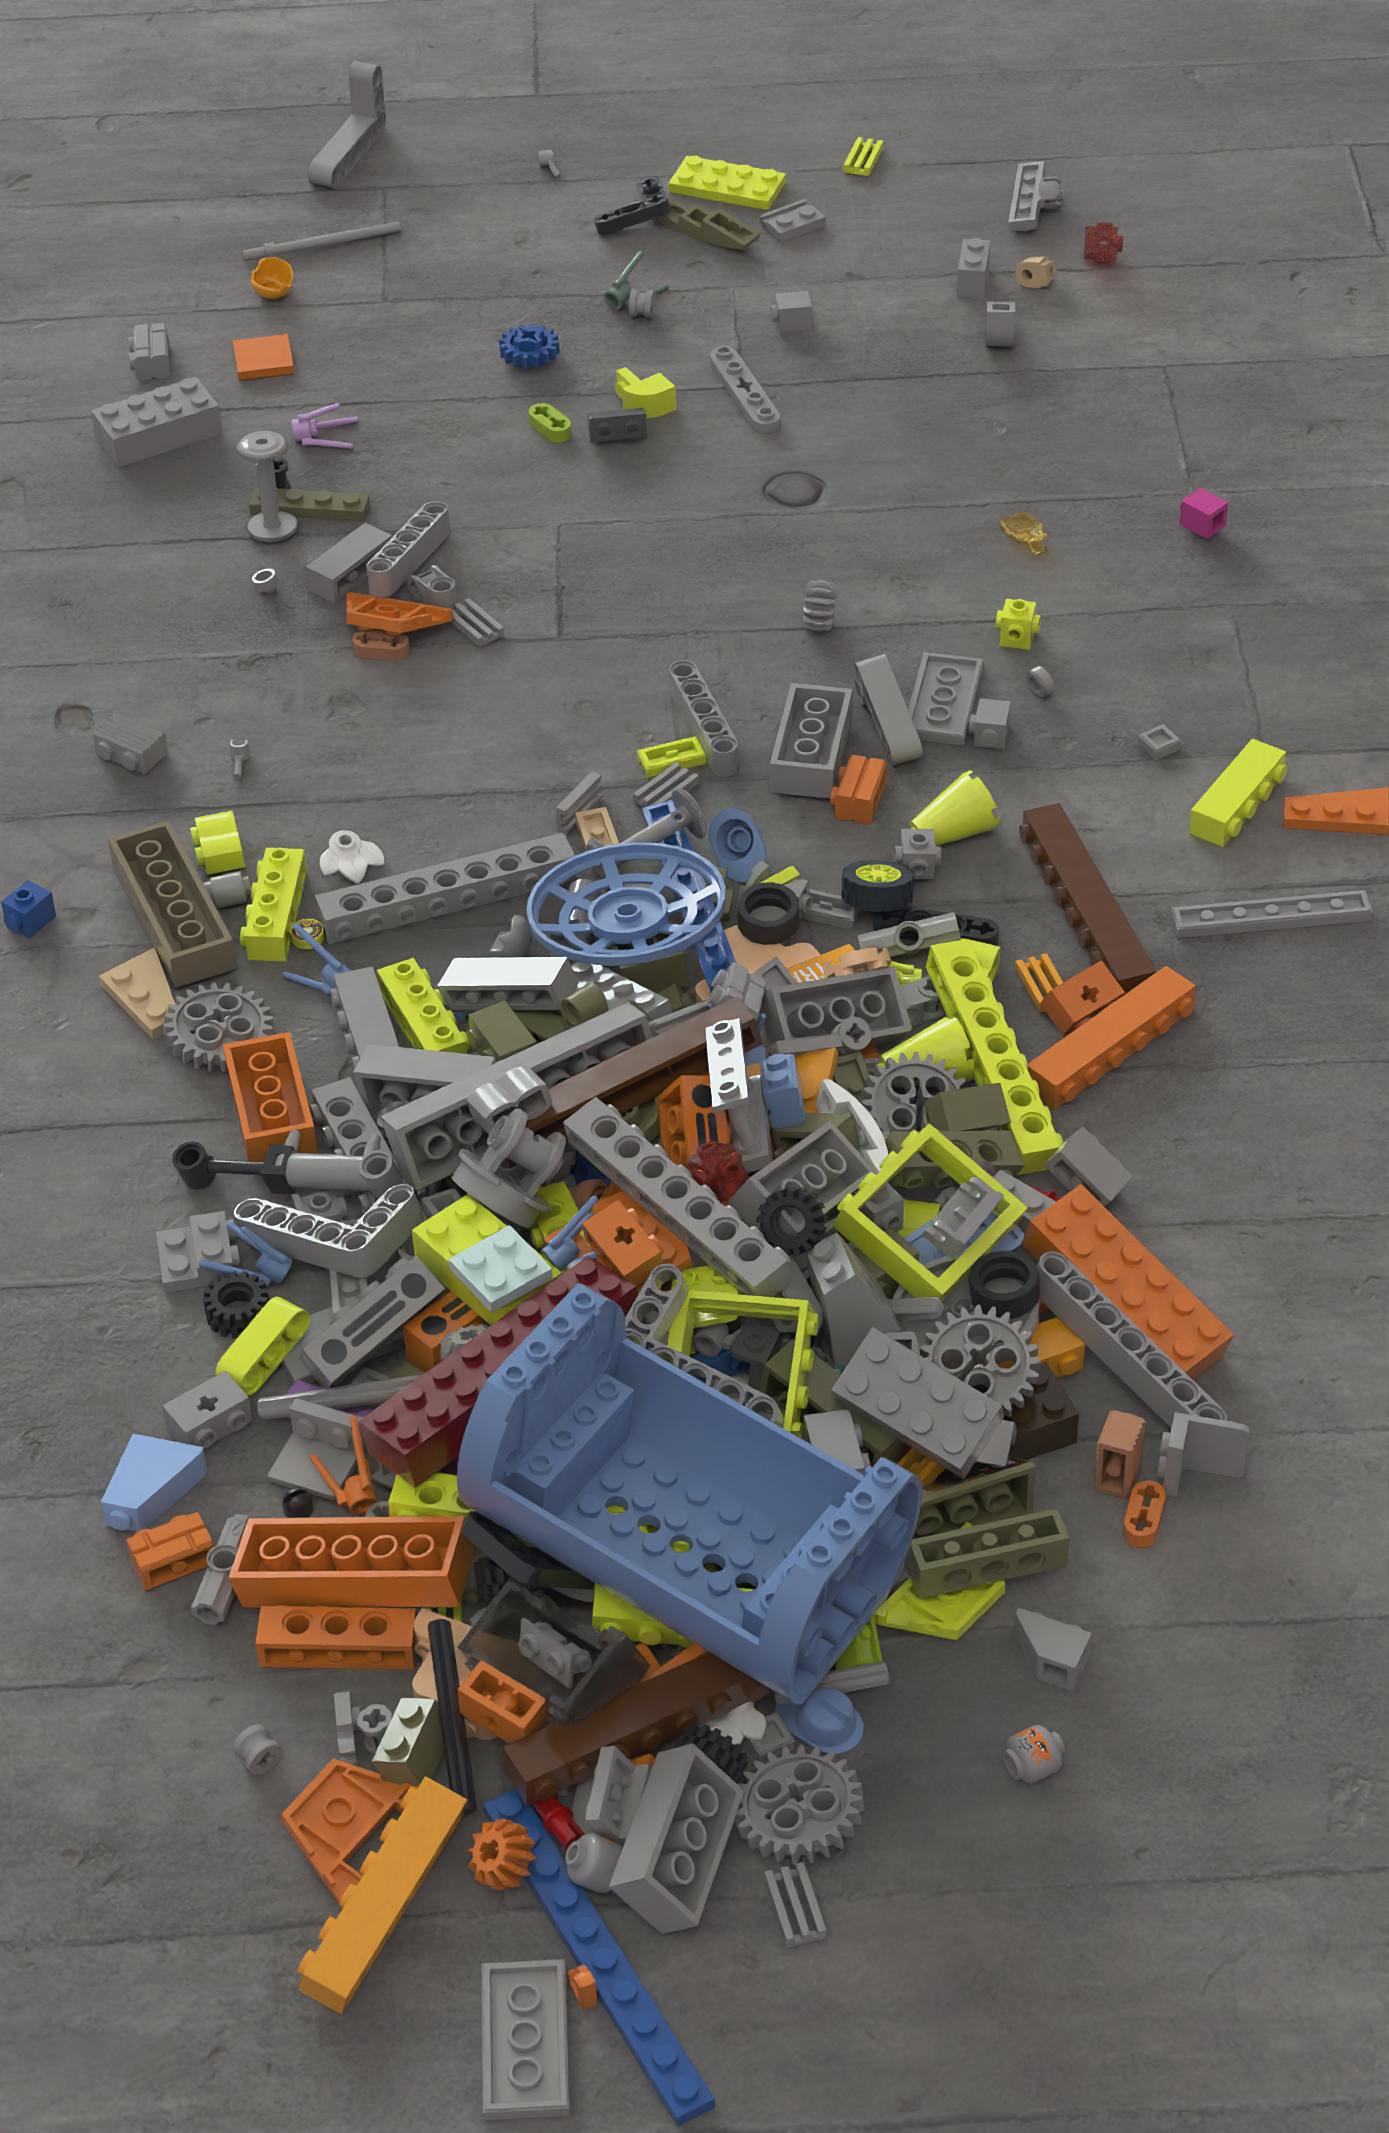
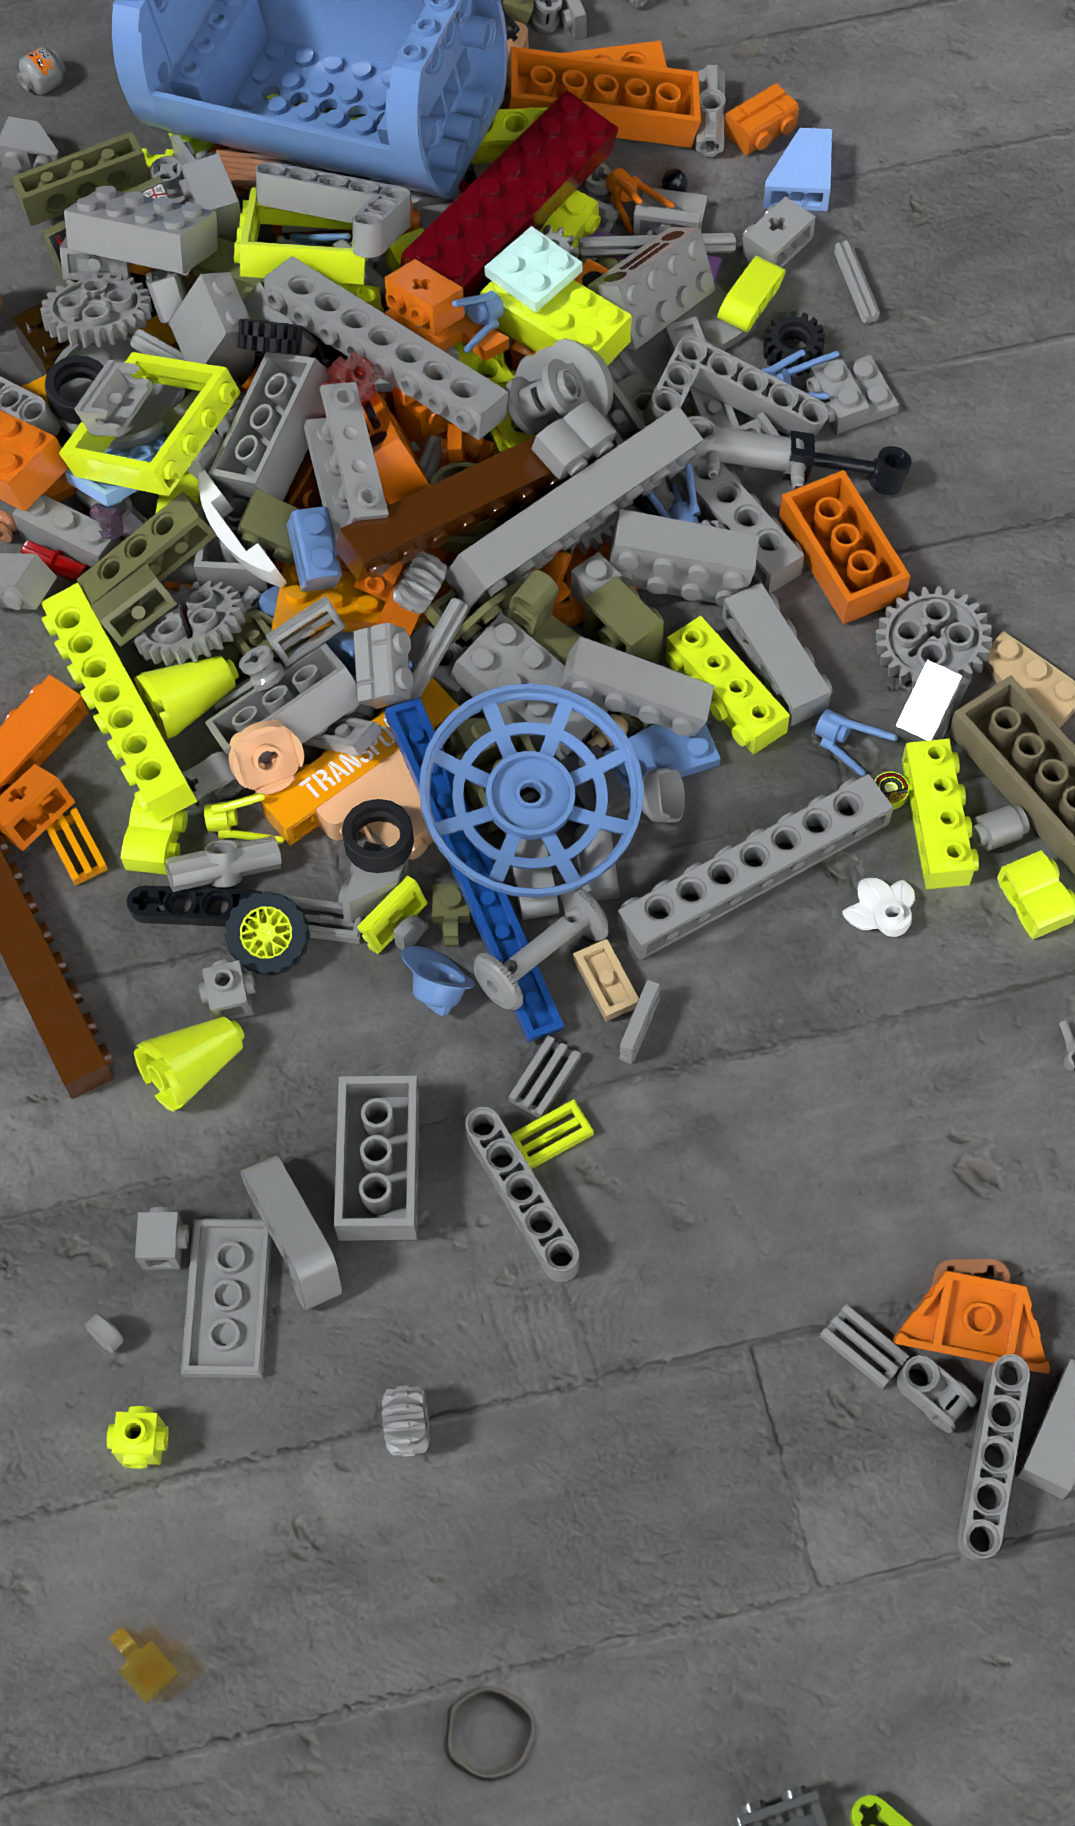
camera: 170 degrees right, 20 degrees up
(142, 1364) = (856, 282): none -> light grey axle
(242, 960) = (933, 702): none -> hinge
(859, 789) = (309, 1098): orange brick -> none

